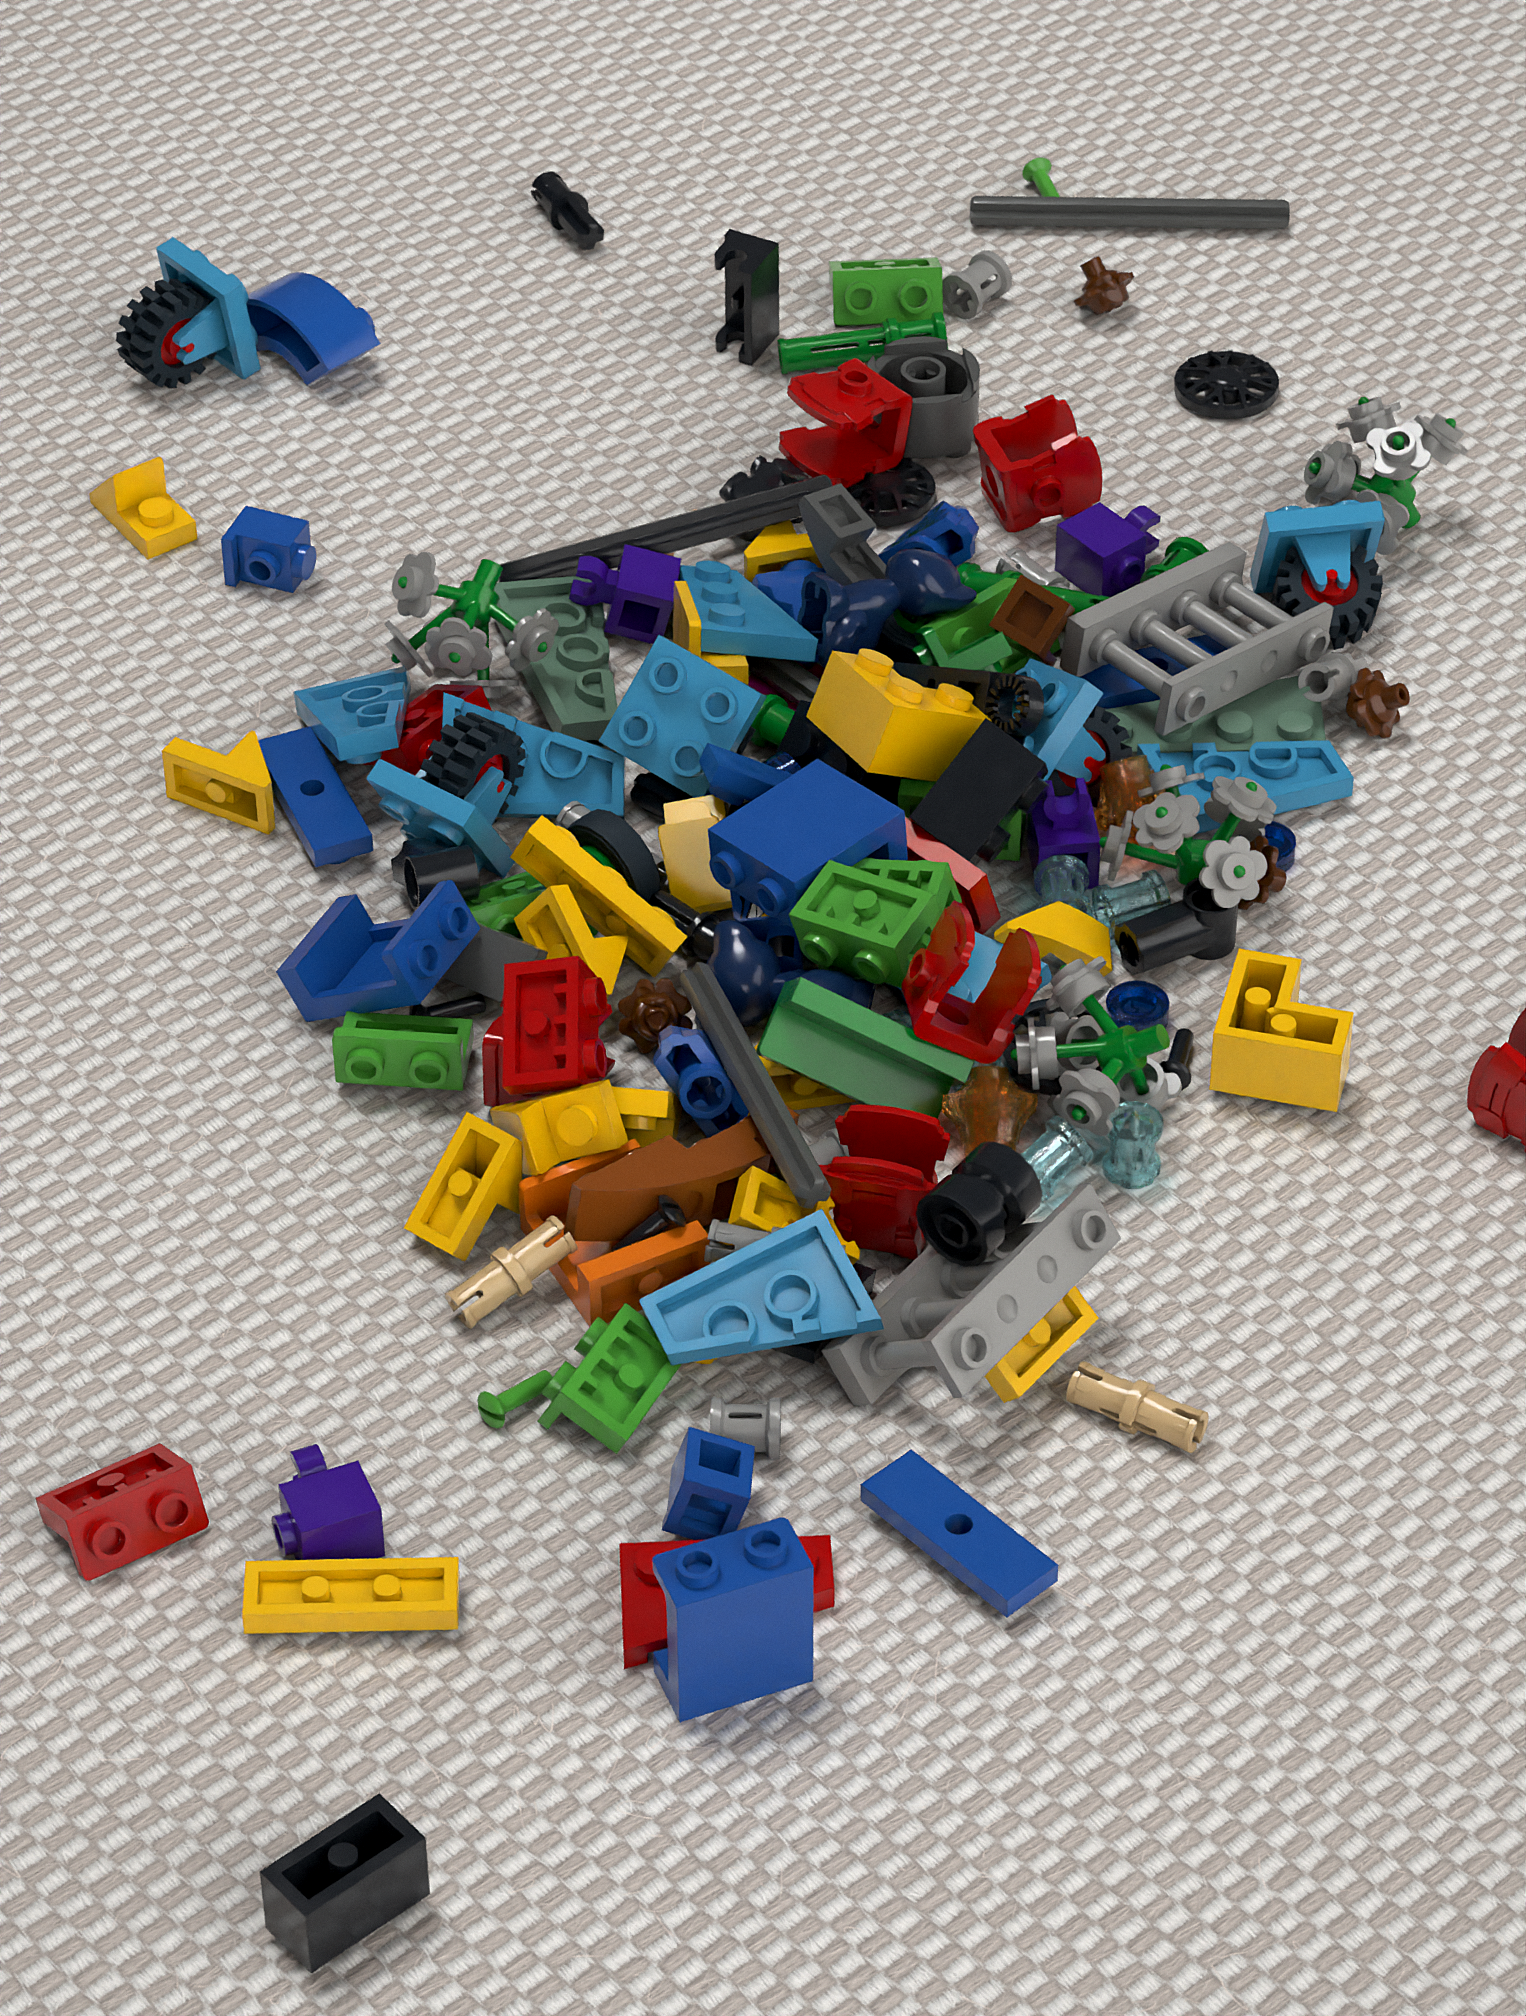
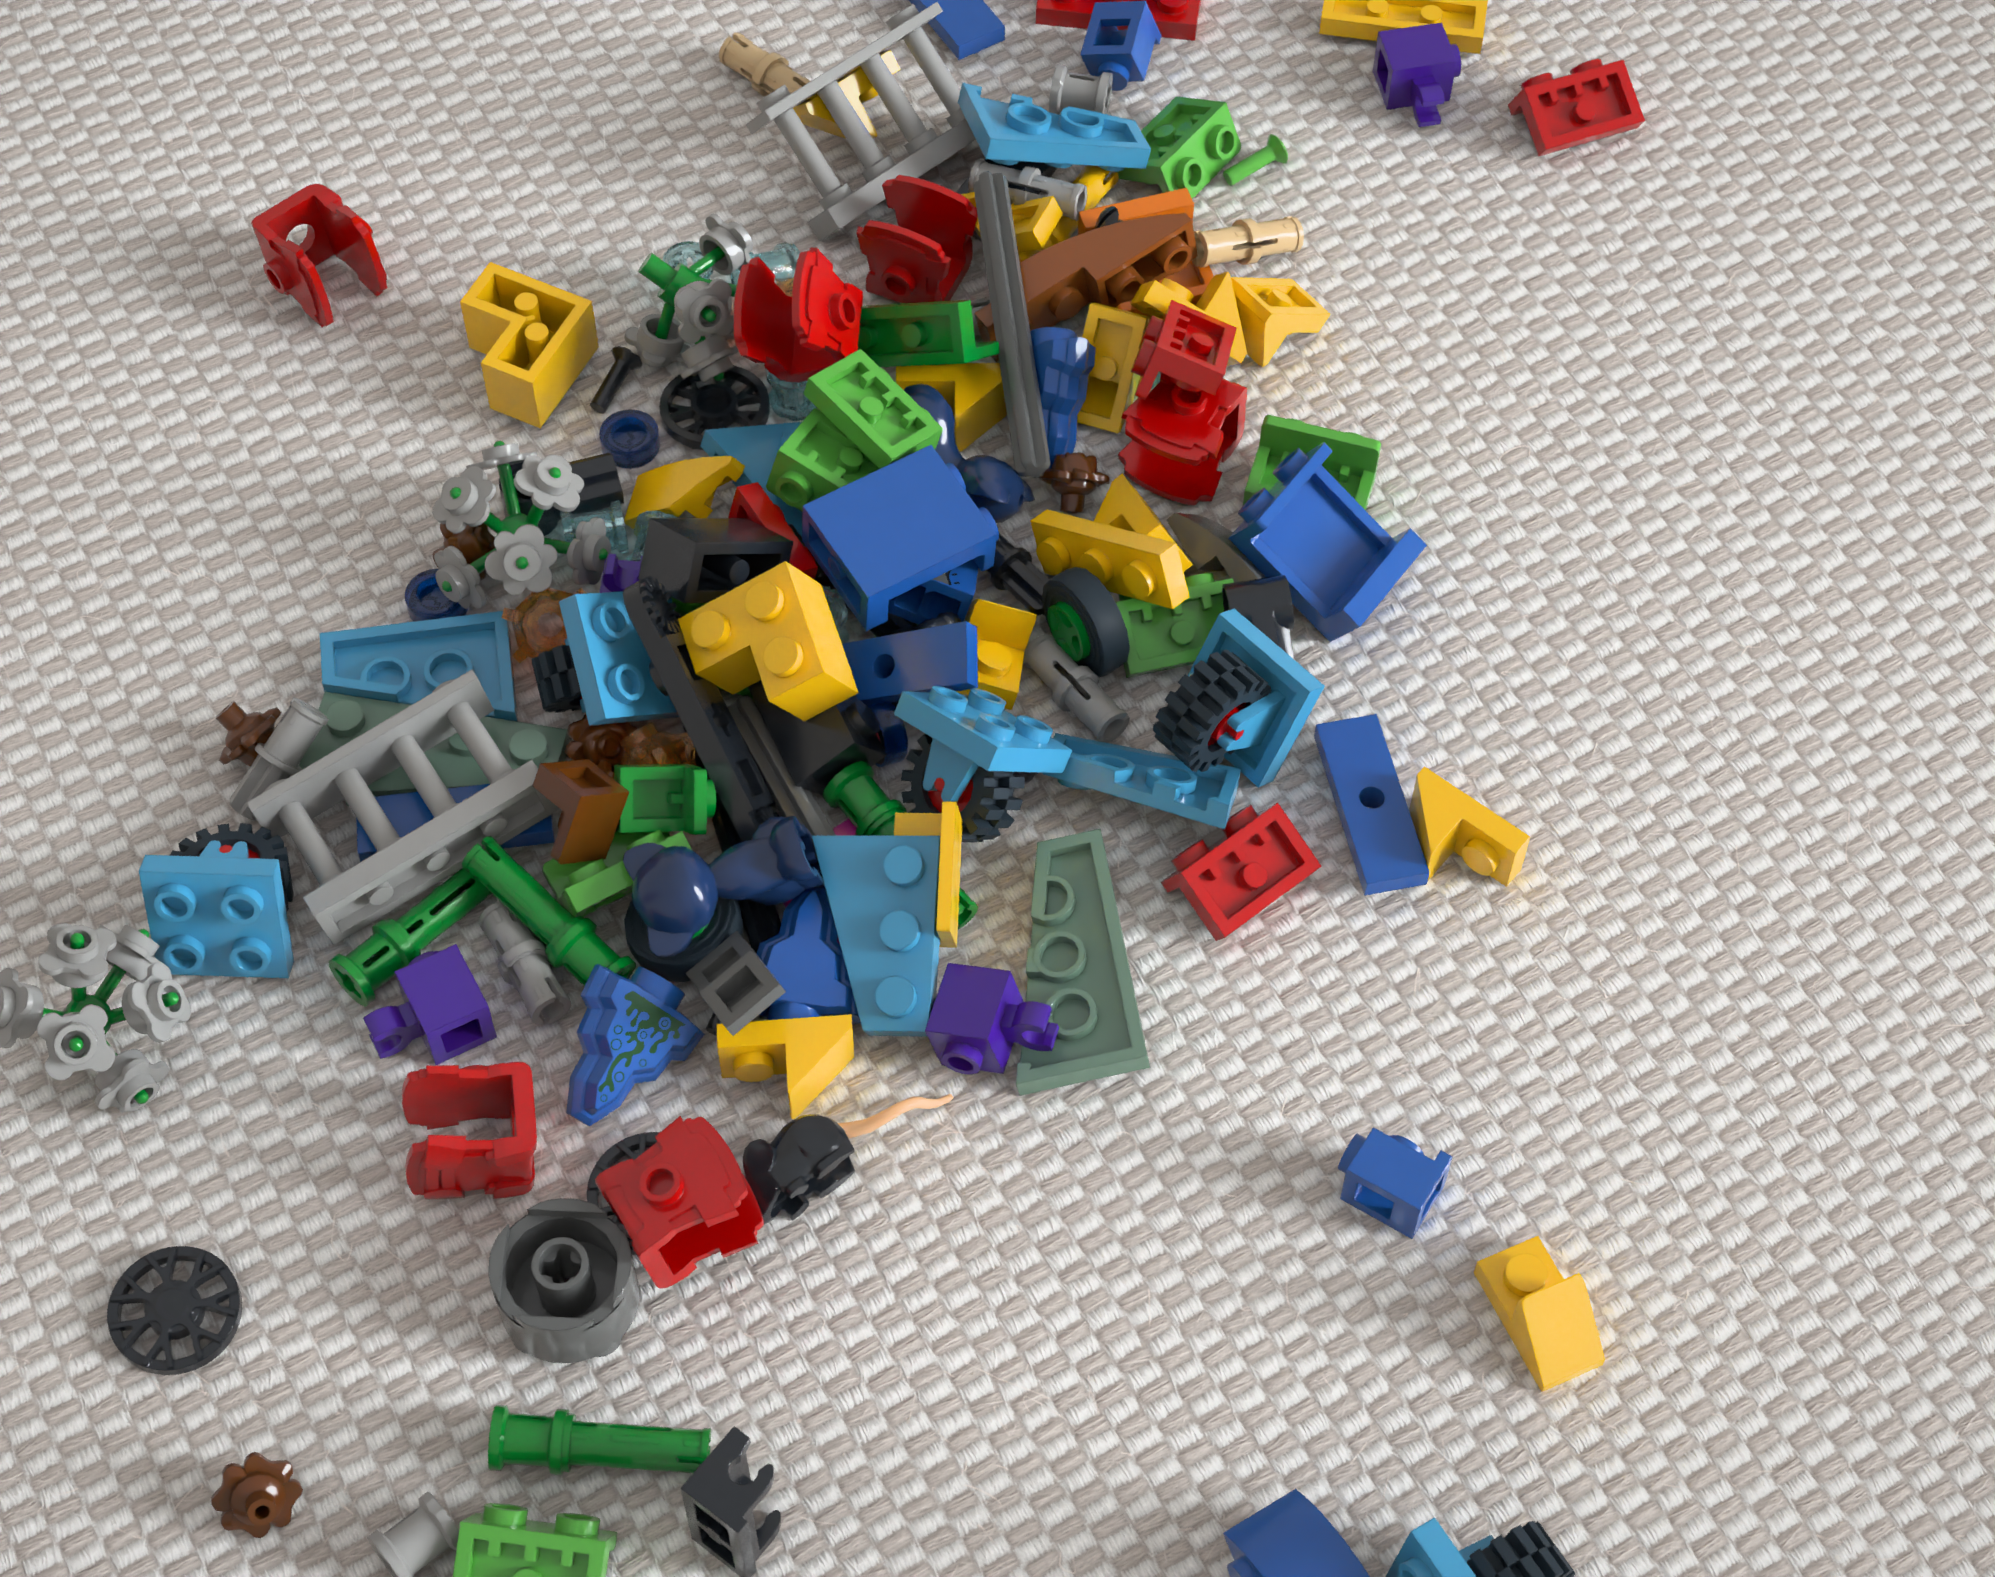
camera: 170 degrees left, 15 degrees up
(358, 714) = (1316, 873): dark azure wing -> none
(461, 632) = (1176, 941): light grey plant -> none
(672, 533) = (930, 1078): black axle -> none
(979, 1204) = (851, 155): black wheel -> none

